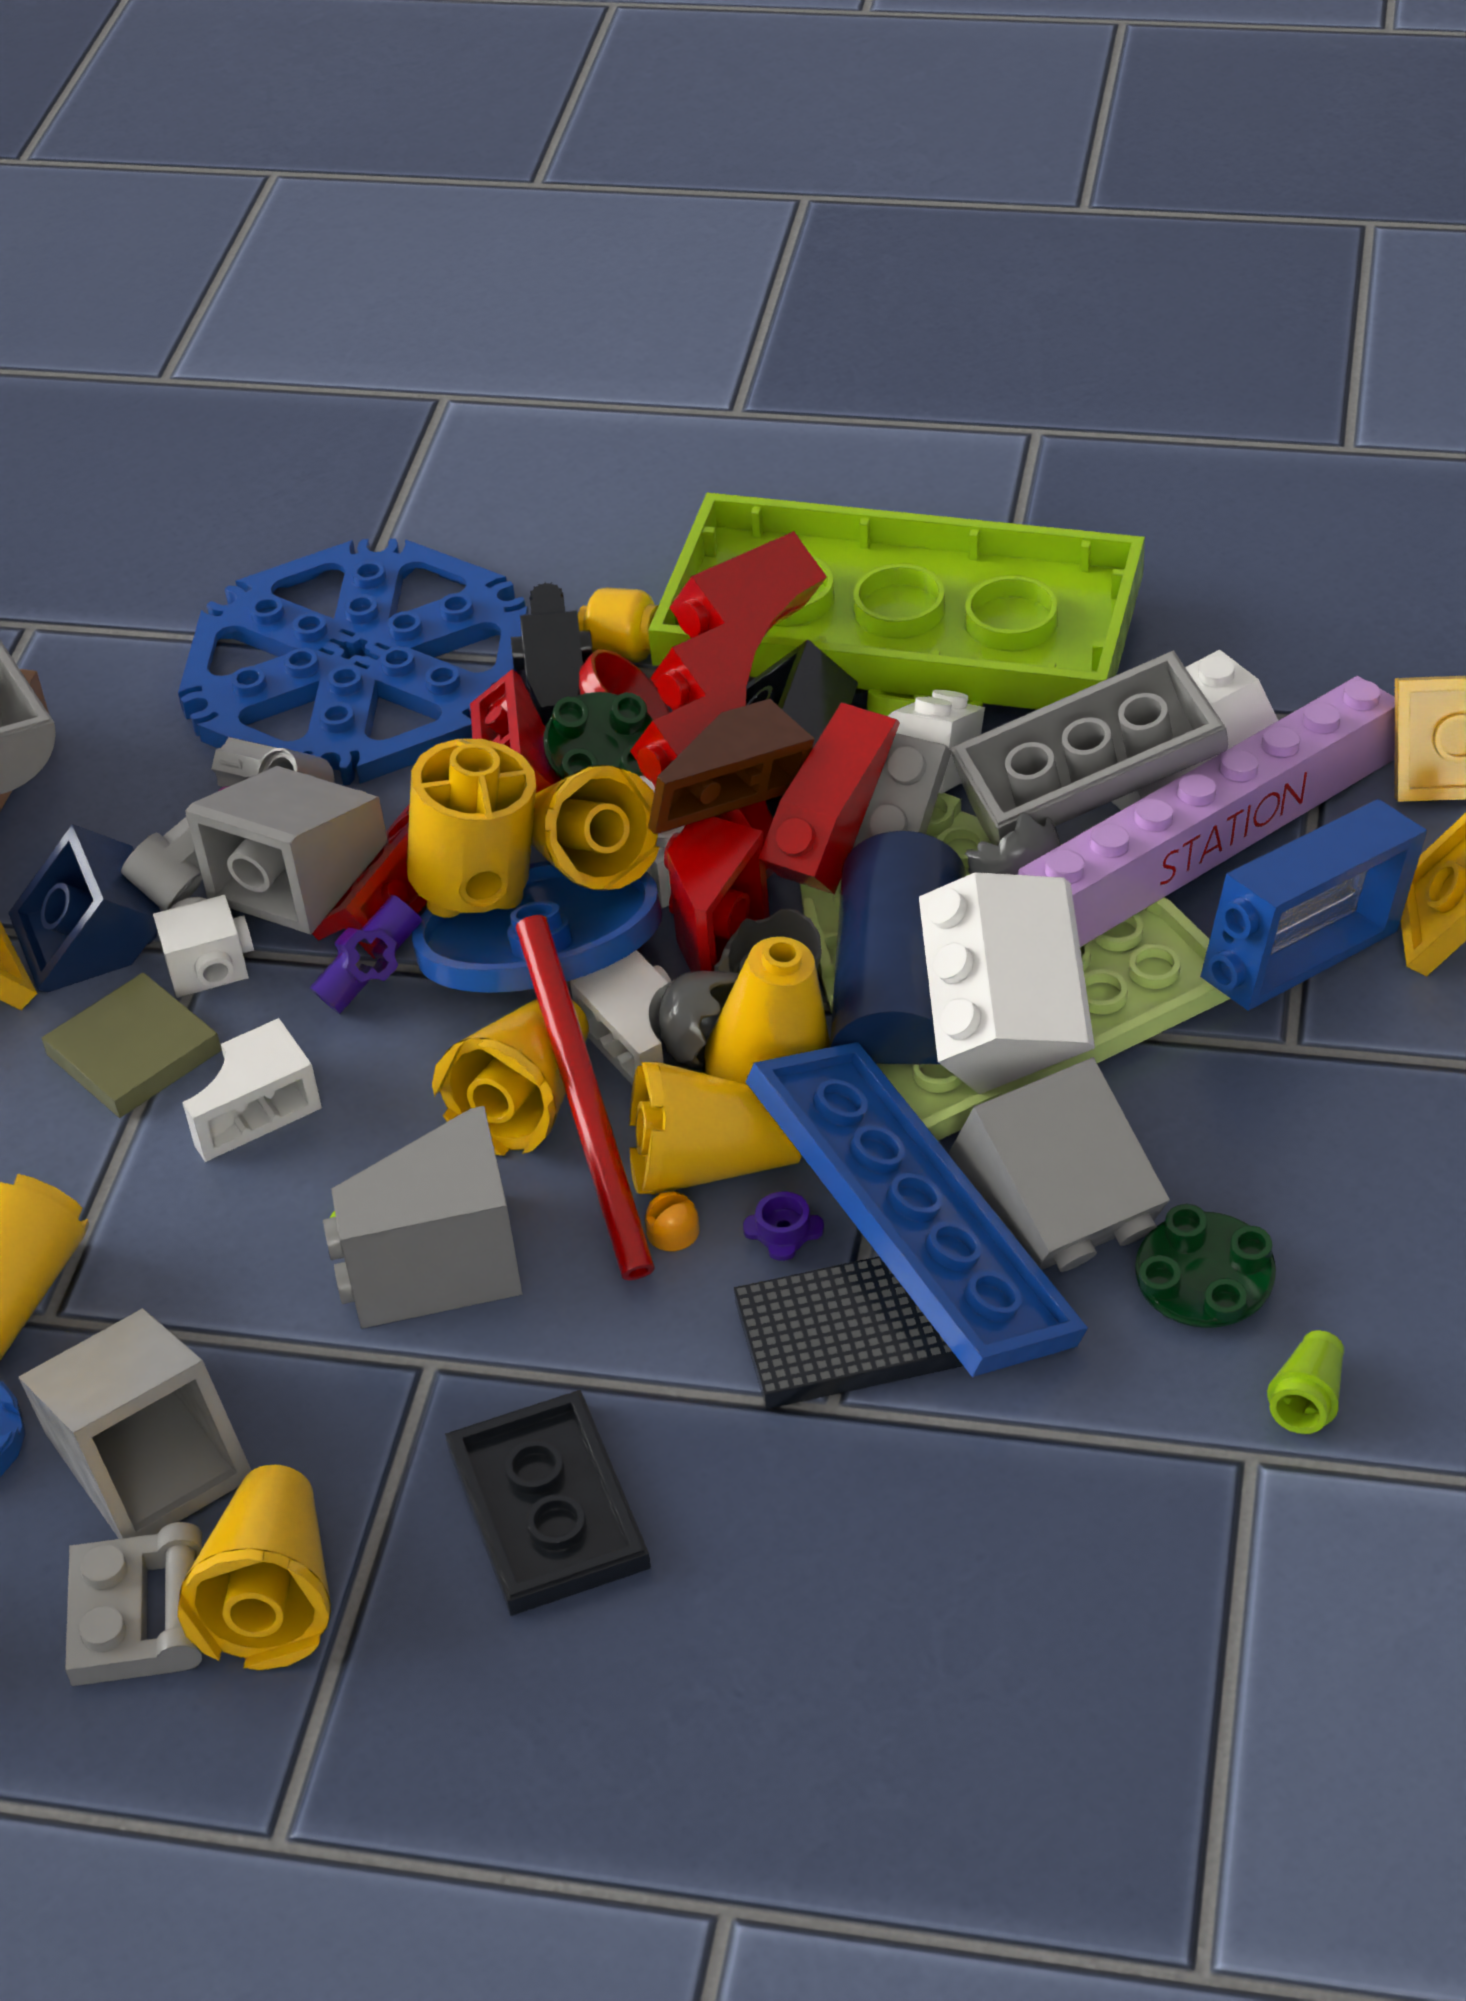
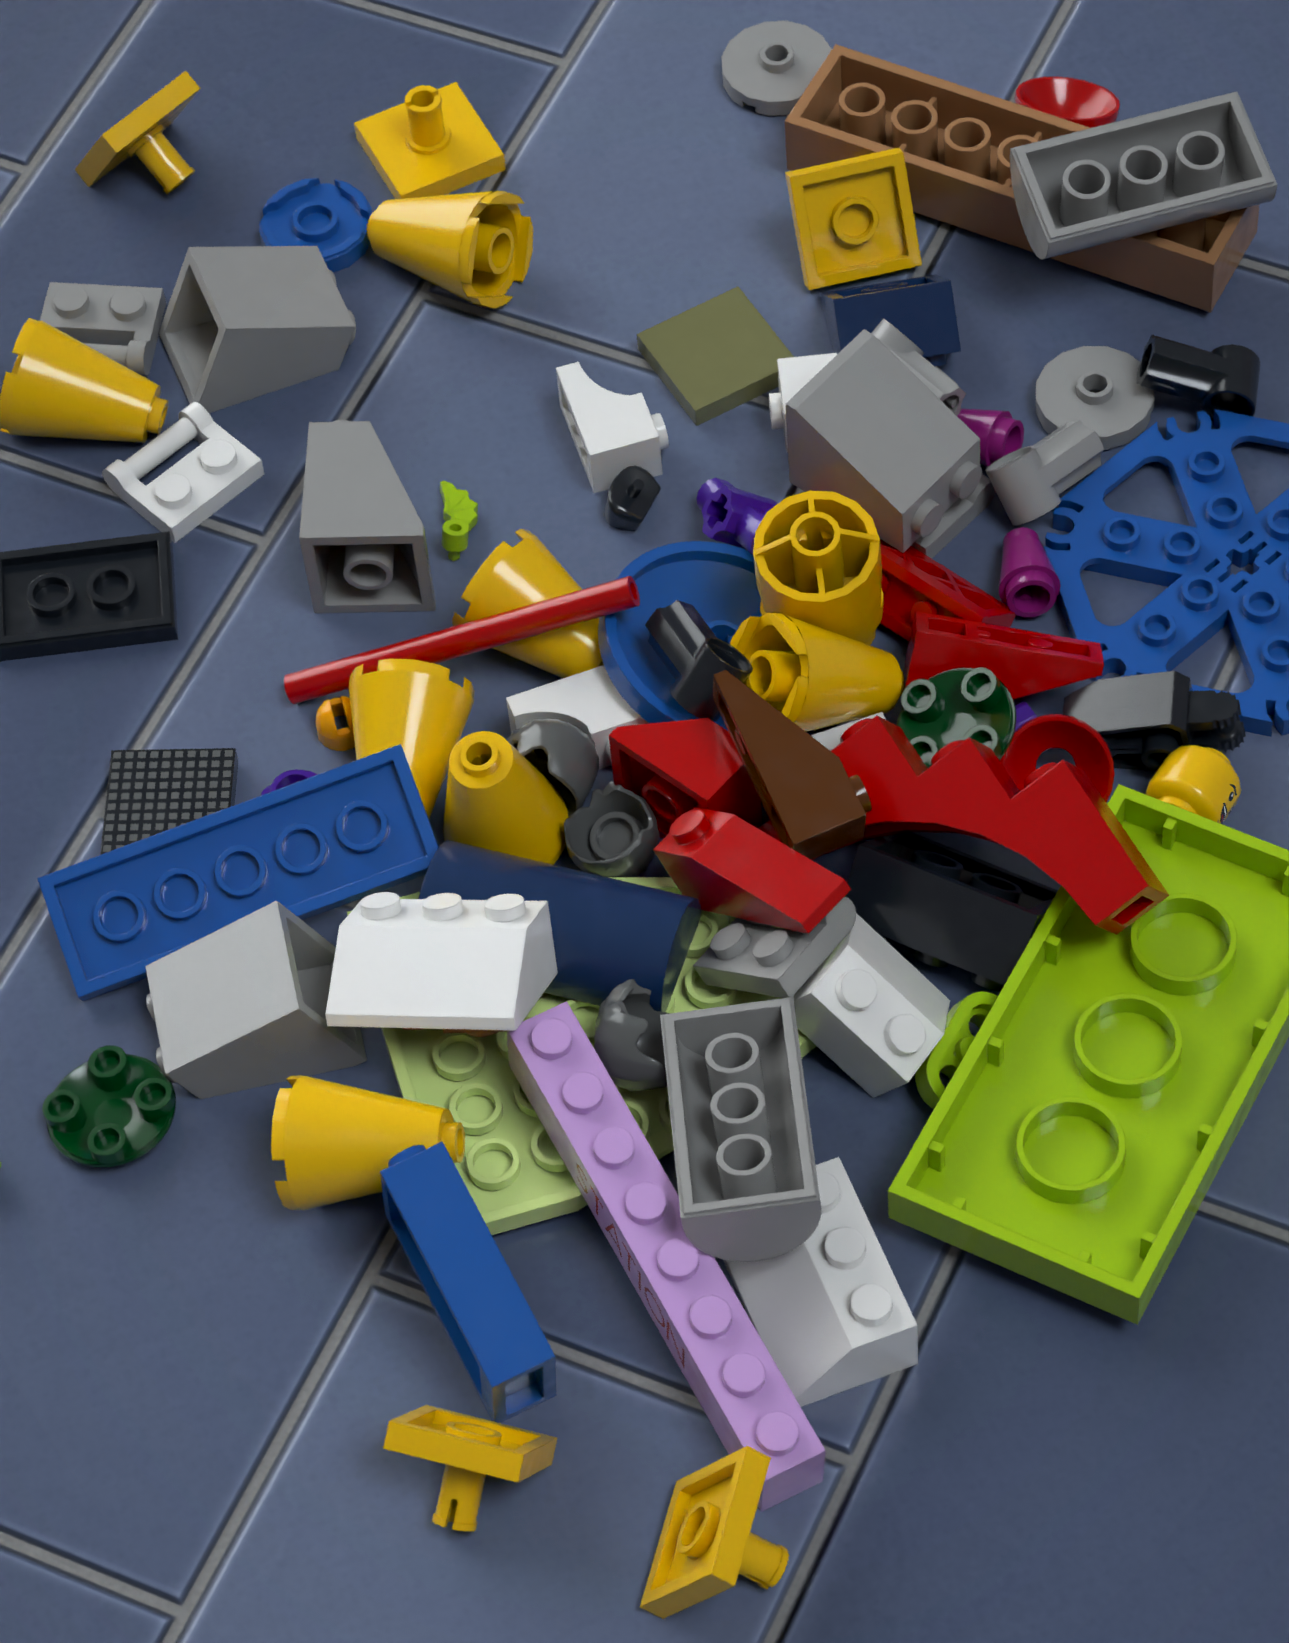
camera: 105 degrees right, 10 degrees up
(146, 695) = (1215, 379): none -> black piece
(162, 774) = (1098, 390): none -> light grey plate
(339, 1063) = (630, 498): none -> black piece
(361, 1437) = (193, 485): none -> white plate
(387, 768) = (1027, 576): none -> magenta cone
(603, 875) = (693, 657): none -> black piece
(1196, 1035) = (345, 1135): none -> yellow cone

